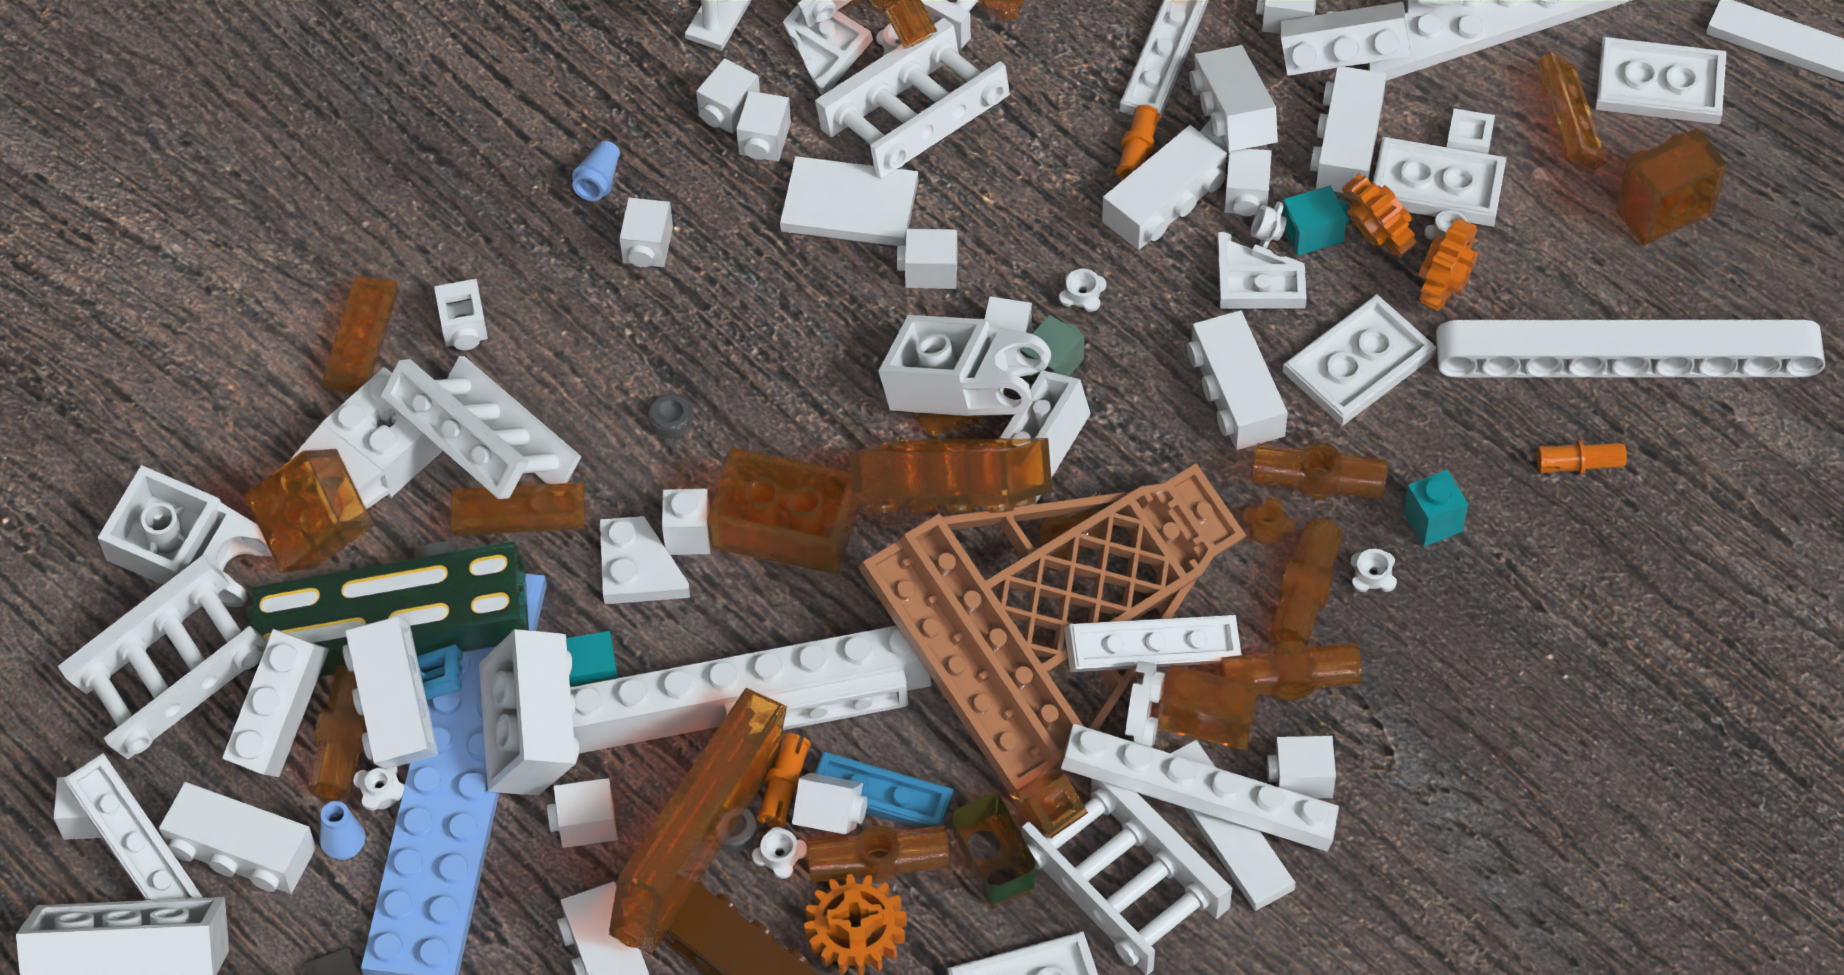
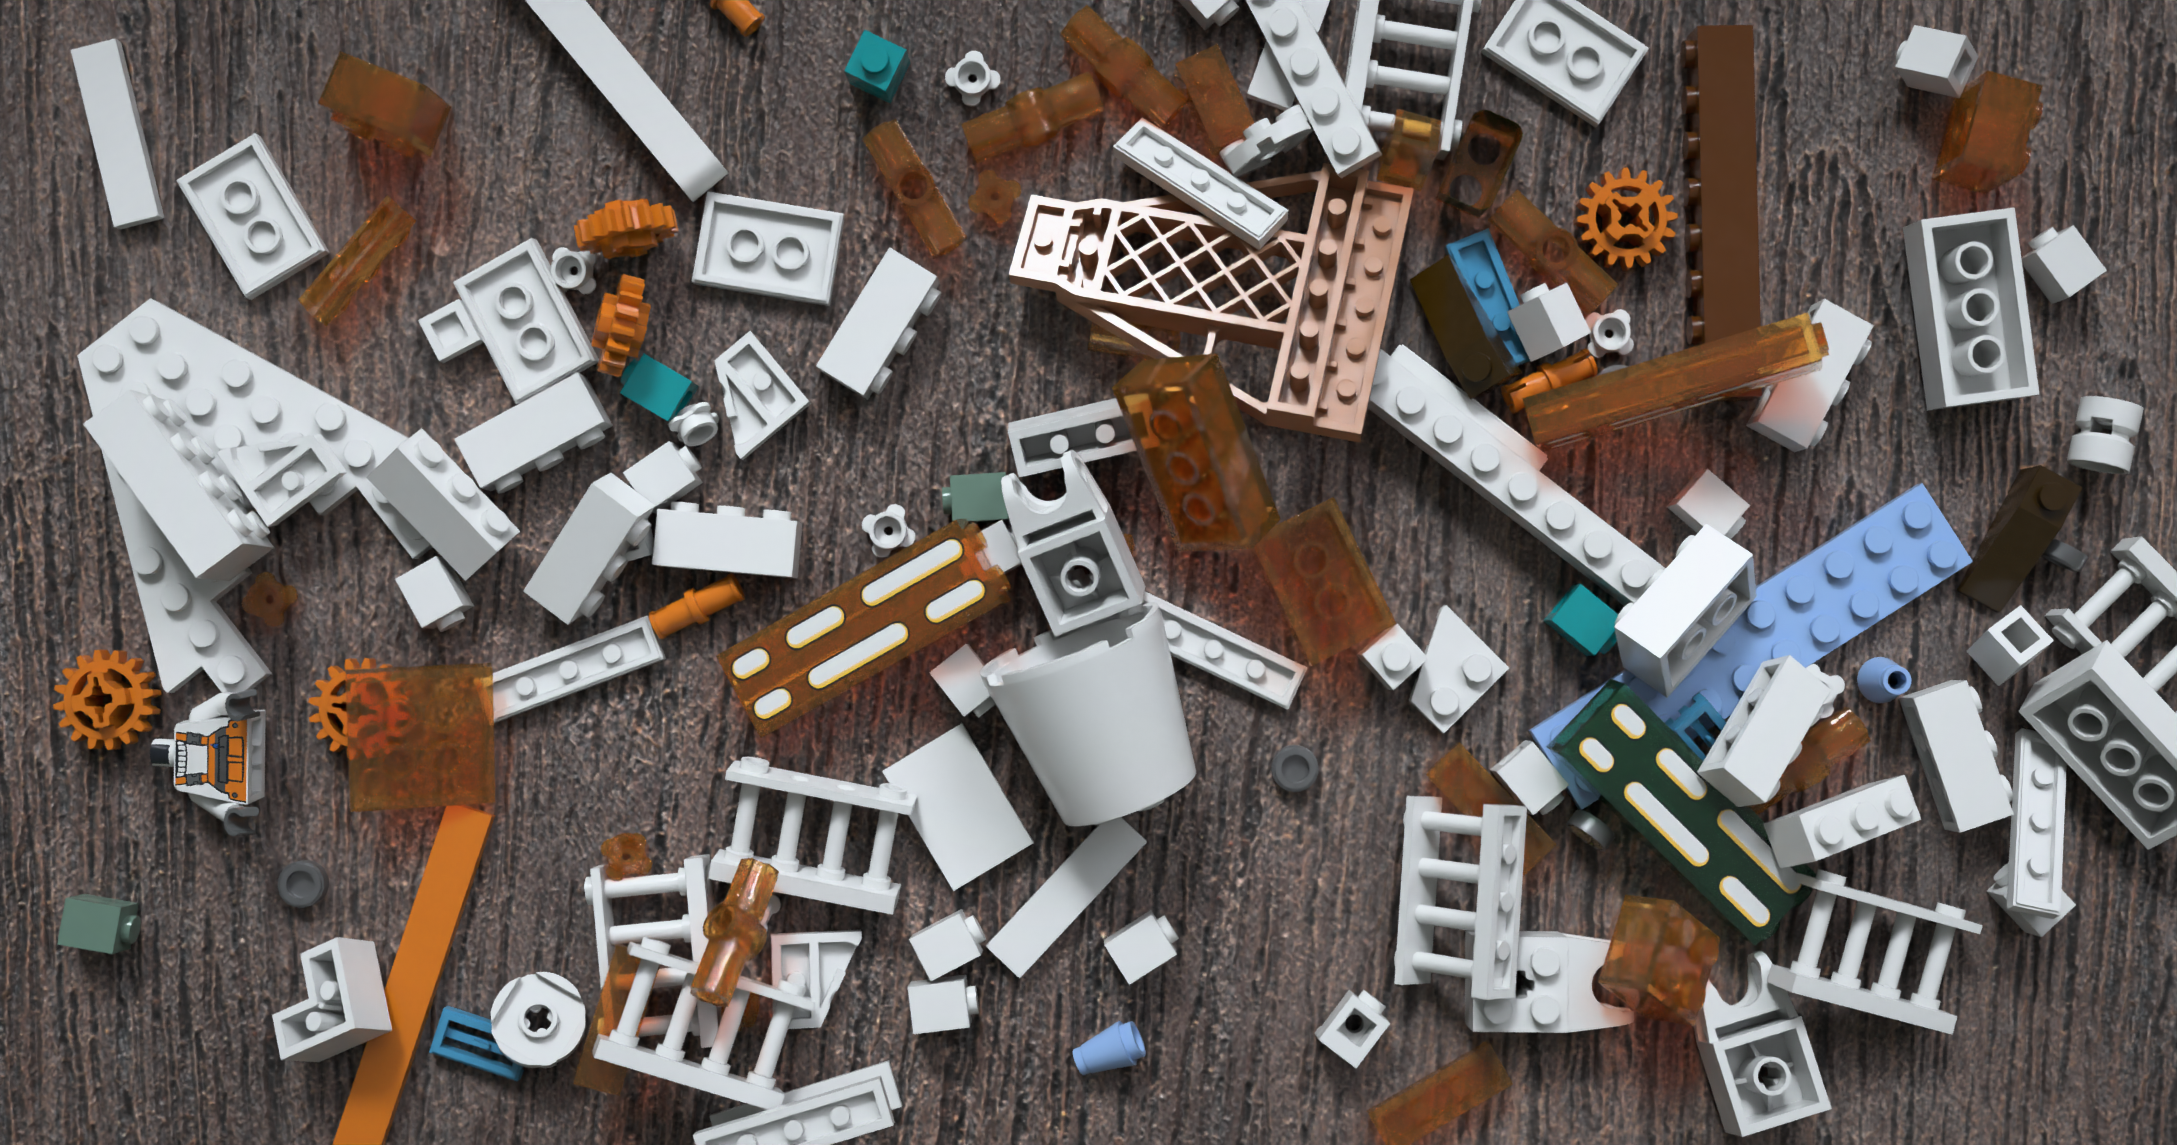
camera: 125 degrees left, 30 degrees up
(276, 929) = (2009, 645): none -> white brick
(525, 532) = (1530, 778): none -> white brick
(726, 223) = (1065, 894): none -> white tile
(811, 422) = (1228, 655): none -> white tile
(828, 285) = (1098, 715): none -> white cone
(869, 739) = (1463, 329): none -> dark brown slope
(1025, 215) = (865, 626): none -> clear orange brick

